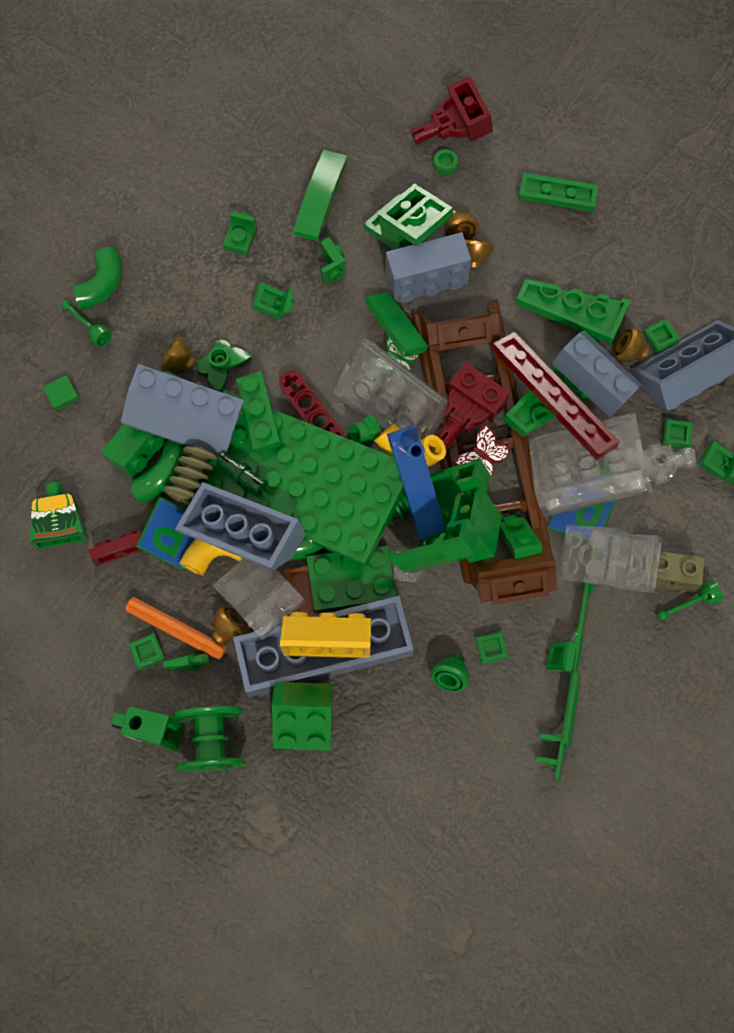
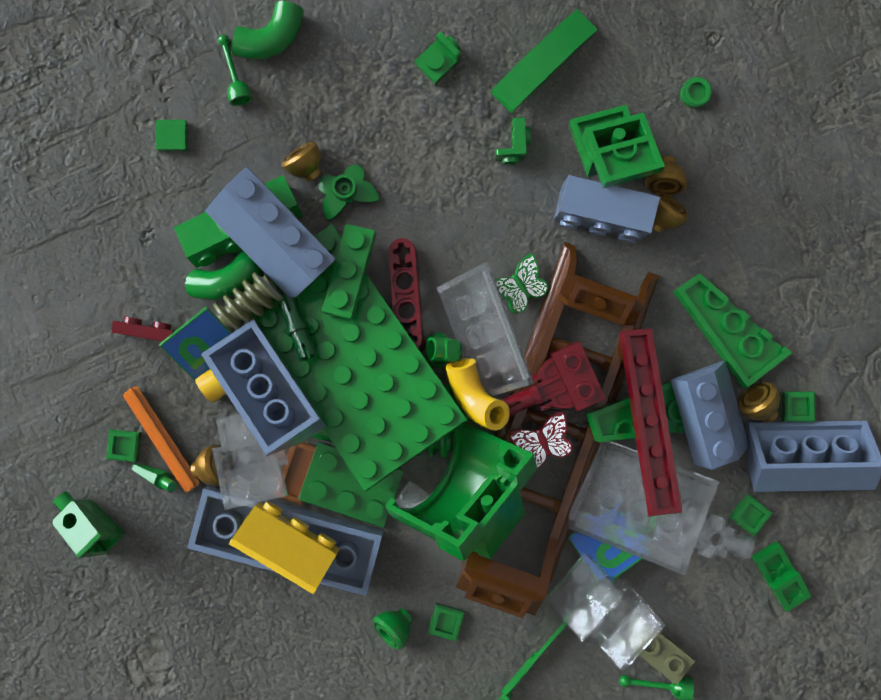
camera: 30 degrees right, 15 degrees up
(56, 519) = (101, 268): torso -> none
(209, 738) = (124, 589): green piece -> none
(272, 301) = (431, 153): green bracket -> none
(302, 716) = (229, 597): green brick -> none
(396, 324) = (539, 250): green tile -> none
(416, 481) = (459, 437): blue piece -> none
(458, 115) = (739, 50): dark red brick -> none
(519, 536) = (530, 542): green plate -> none
(558, 192) = (791, 193): green plate -> none
(561, 657) = (504, 670): green tile -> none

